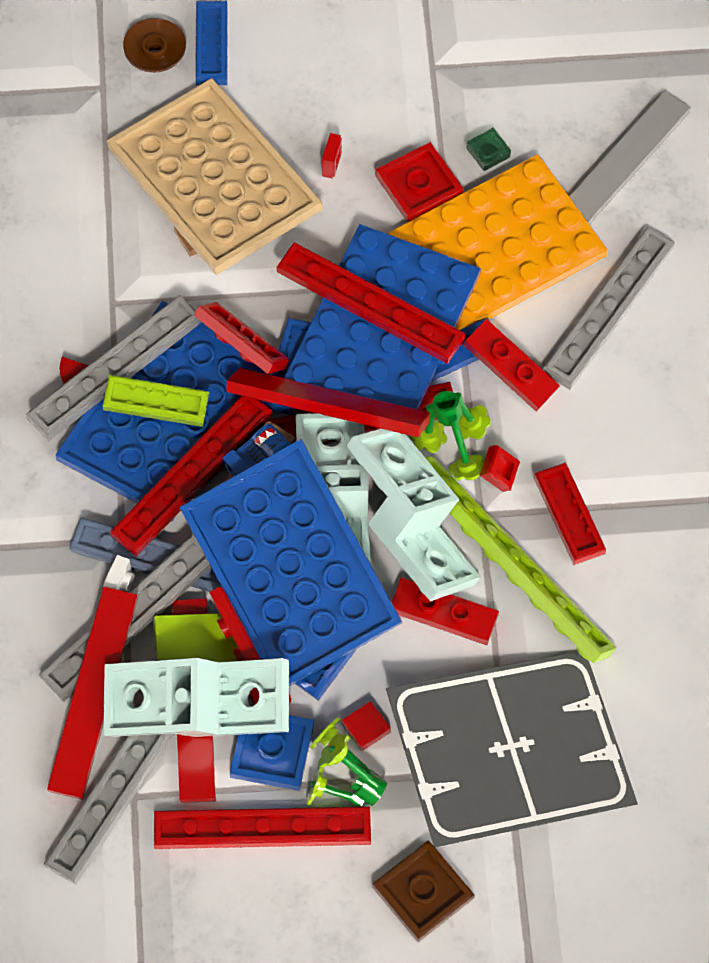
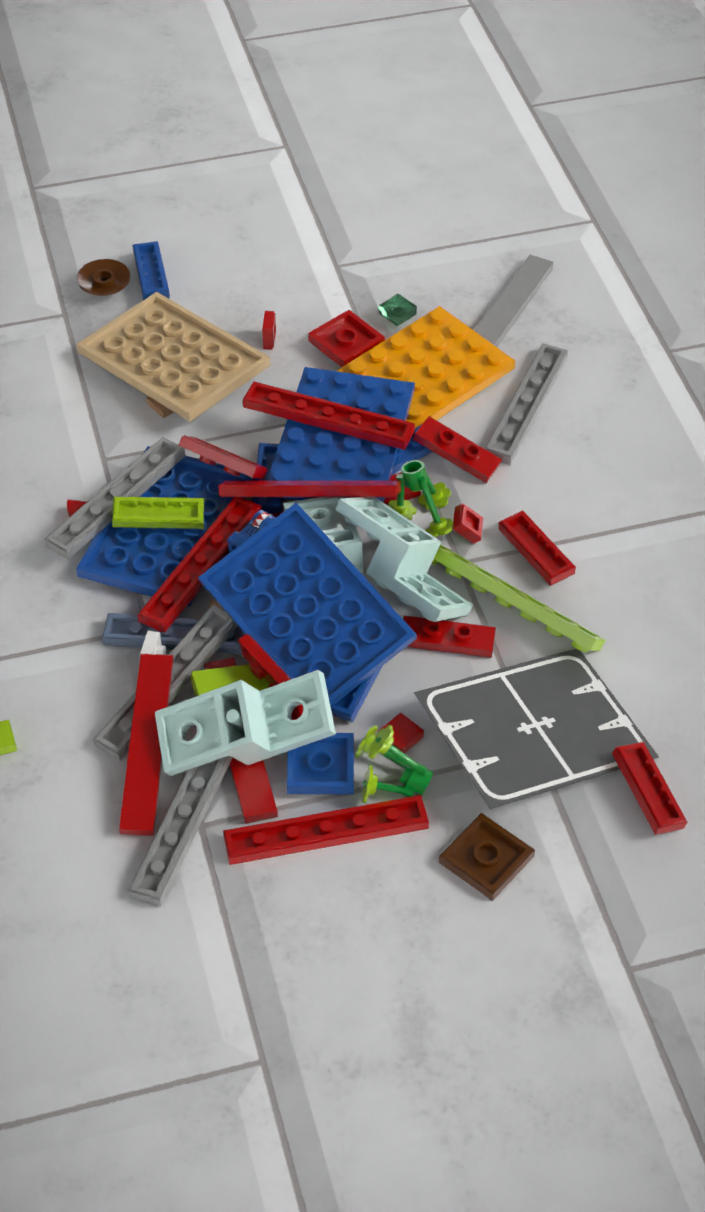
camera: 10 degrees left, 15 degrees down
(614, 844) = (649, 788): none -> red plate

